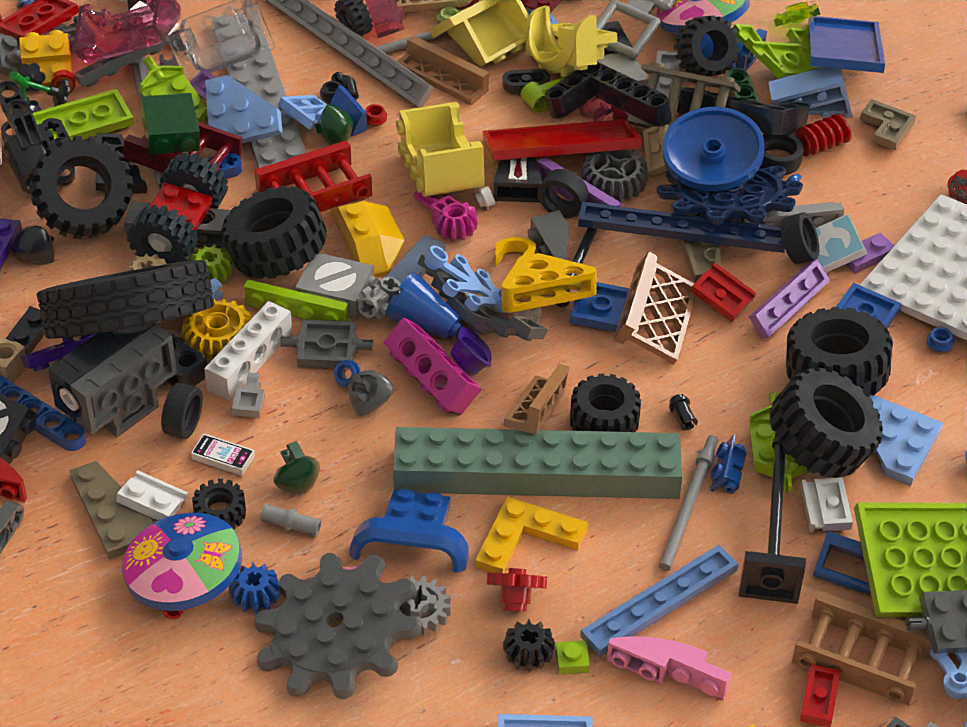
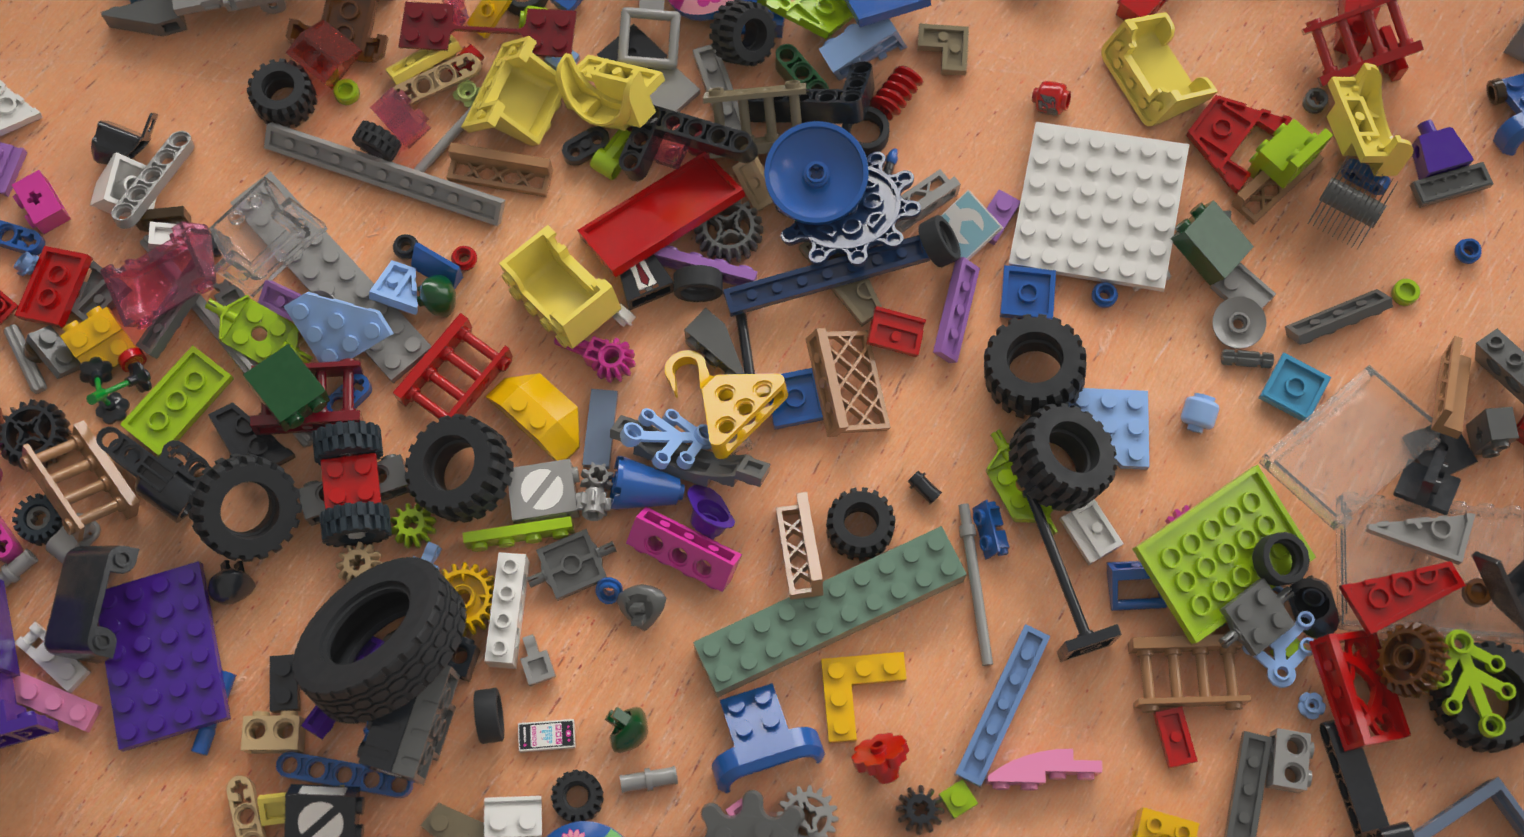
camera: 25 degrees left, 25 degrees up
(347, 82) = (416, 229): black arm -> none

